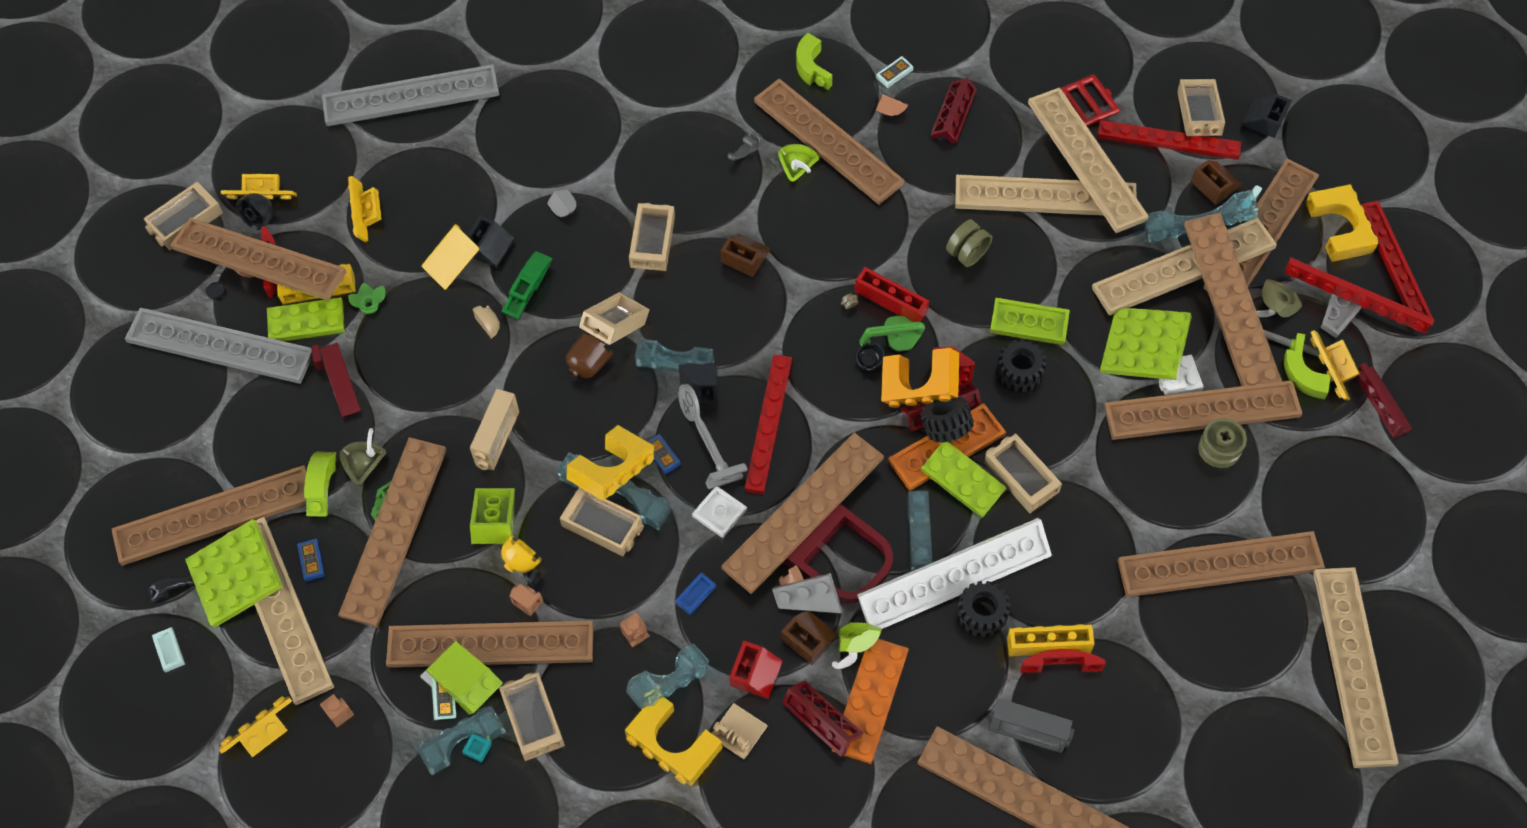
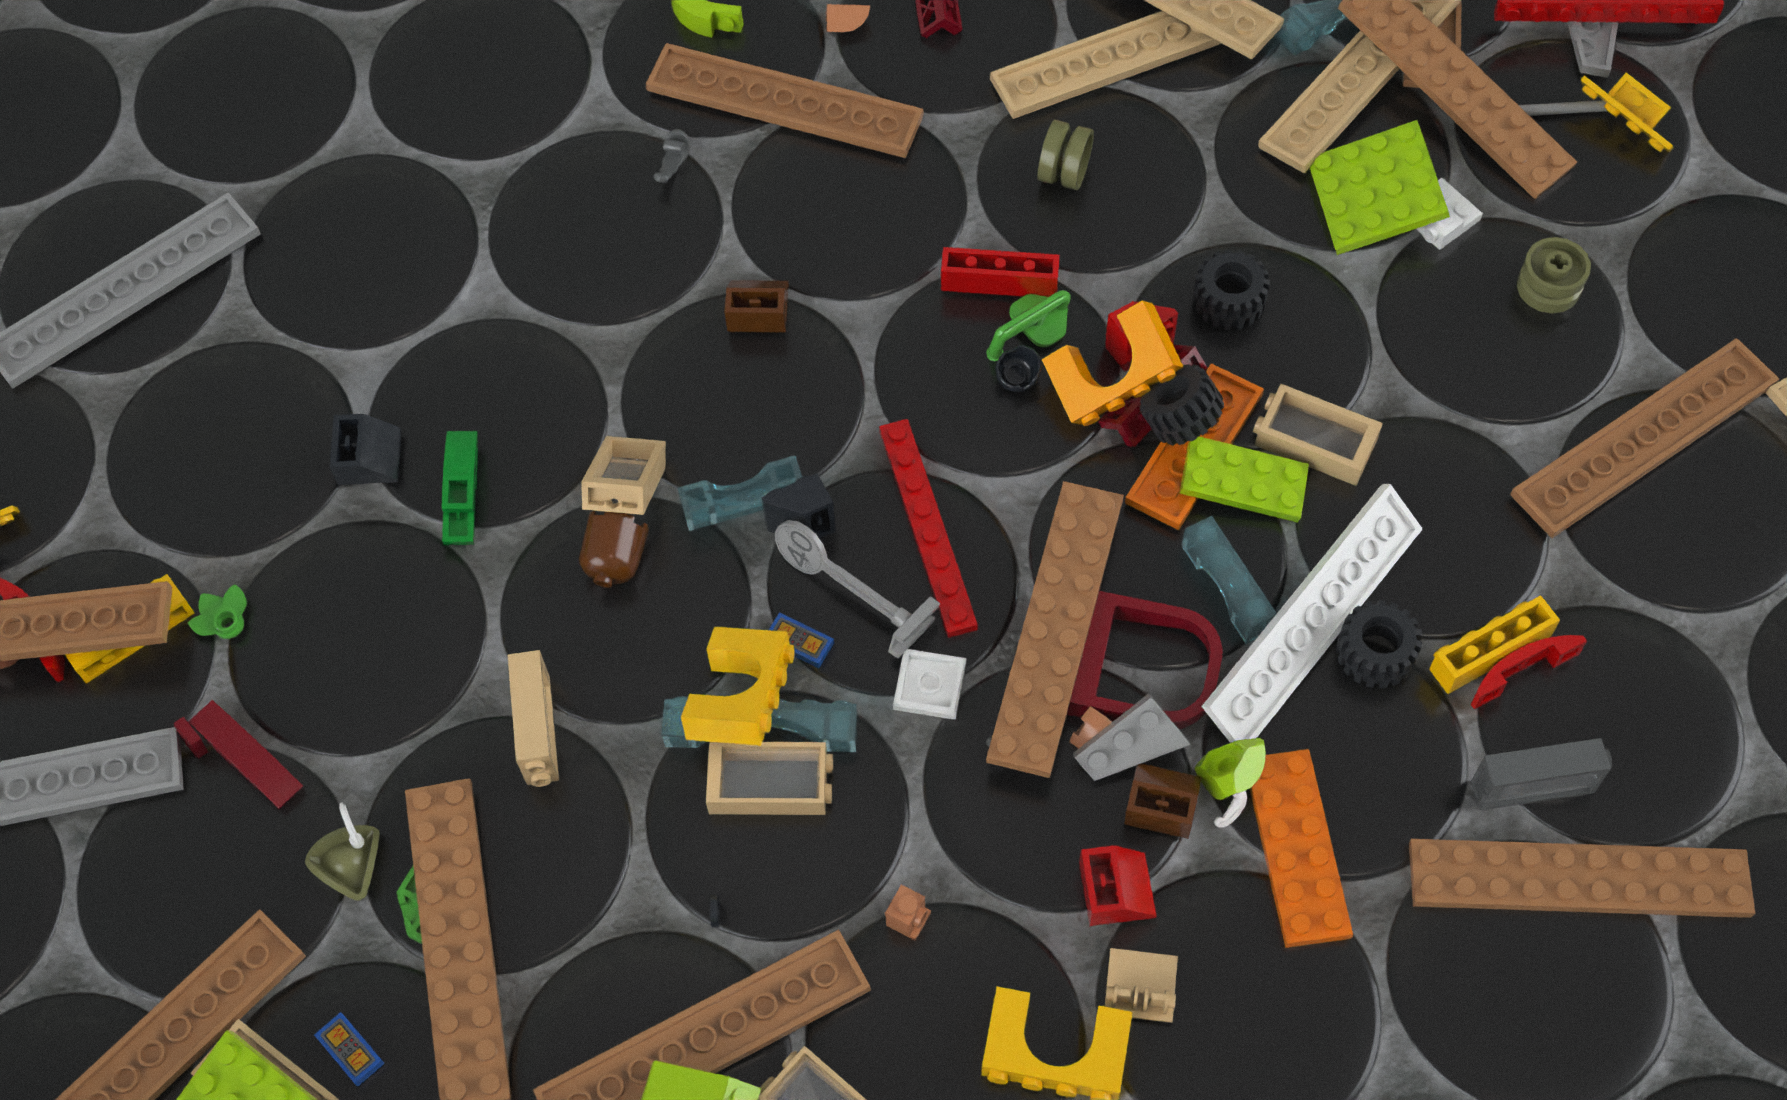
camera: 25 degrees left, 0 degrees up
(306, 320) = (138, 690): lime plate -> none
(317, 480) = (299, 925): lime arch -> none
(364, 208) = (142, 481): yellow bracket -> none
(450, 257) = (320, 496): yellow piece -> none
(487, 320) = (426, 564): tan brick -> none
(492, 515) = (599, 847): lime slope -> none
(518, 556) = (674, 888): yellow cylinder -> none
(525, 599) = (718, 946): nougat brick -> none
(562, 203) = (445, 347): light grey brick -> none
(649, 688) = (987, 985): clear light blue arch -> none
(652, 237) = (608, 338): tan window -> none
(695, 593) = (963, 817): blue tile -> none
(797, 160) = (756, 144): lime hat -> none
(818, 718) = (1247, 909): dark red fence -> none
(849, 301) = (943, 305): dark tan plate -> none
(1029, 321) = (1204, 226): lime plate -> none
(1198, 409) = (1496, 245): medium nougat plate -> none
(1279, 300) = (1510, 56): olive hat -> none
(1303, 378) = (1595, 142): lime arch -> none
(1382, 401) = (1715, 133): dark red fence -> none

